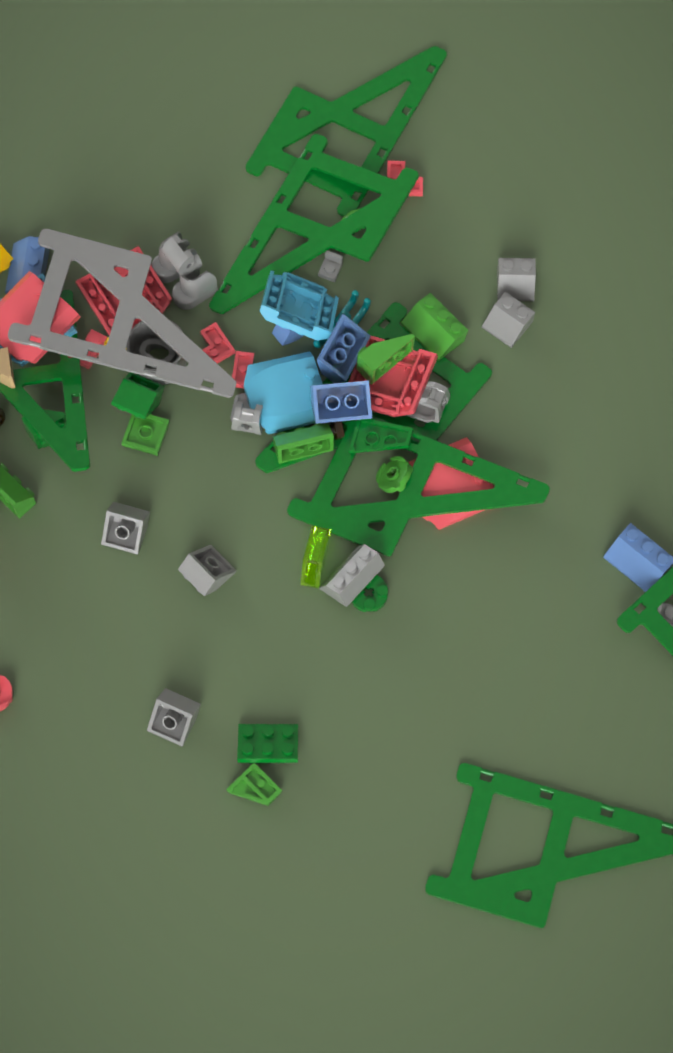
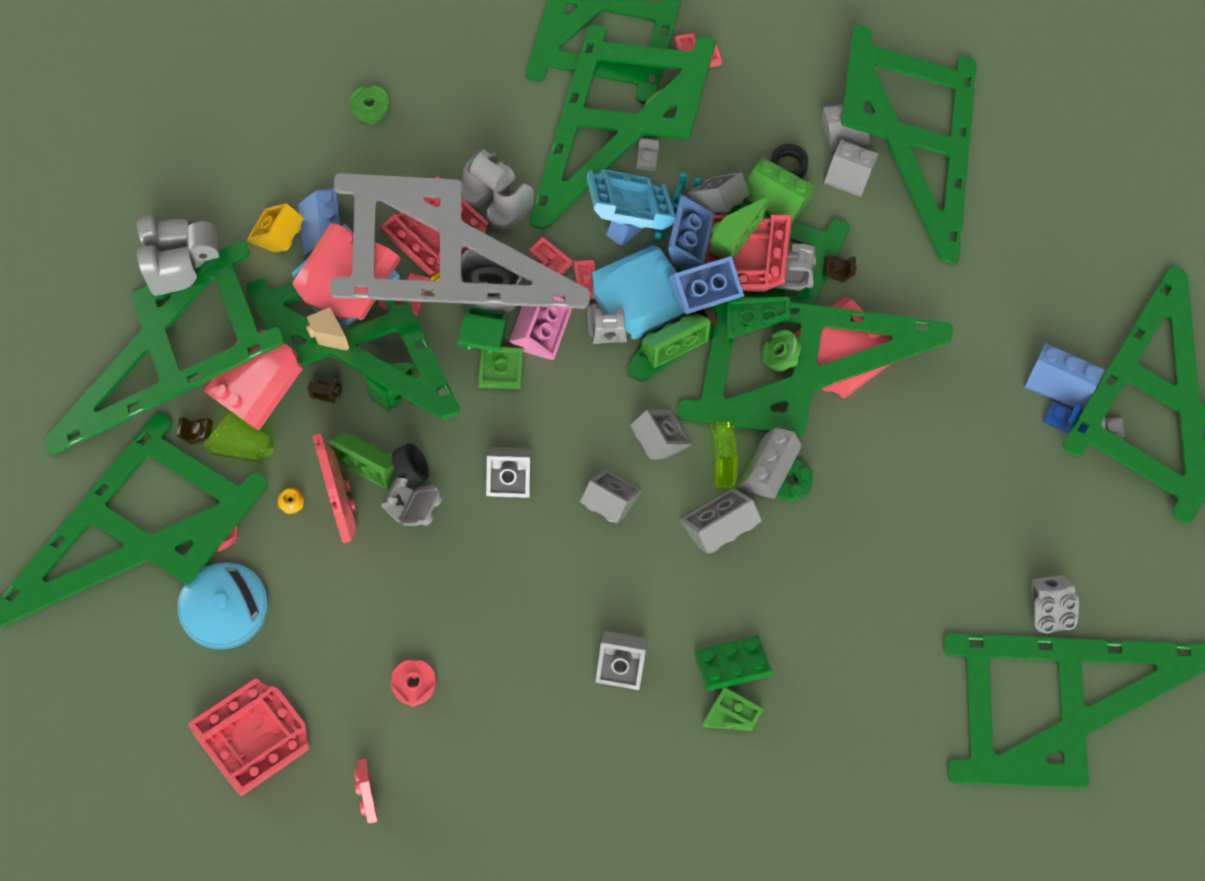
camera: 15 degrees left, 5 degrees down
(33, 504) = (410, 464): none -> black tyre
(38, 539) = (416, 506): none -> light grey piece
(102, 174) = (373, 113): none -> bright green plate
(189, 407) = (540, 329): none -> bright pink slope
(266, 524) = (660, 434): none -> light grey slope
(295, 615) = (721, 520): none -> light grey slope
(382, 317) = (721, 192): none -> light grey slope
(461, 291) = (793, 151): none -> black tyre
(469, 410) = (839, 268): none -> dark brown bracket
(542, 246) = (865, 86): none -> green piece
(564, 760) = (1054, 604): none -> light grey piece
(628, 594) = (1064, 418): none -> blue slope

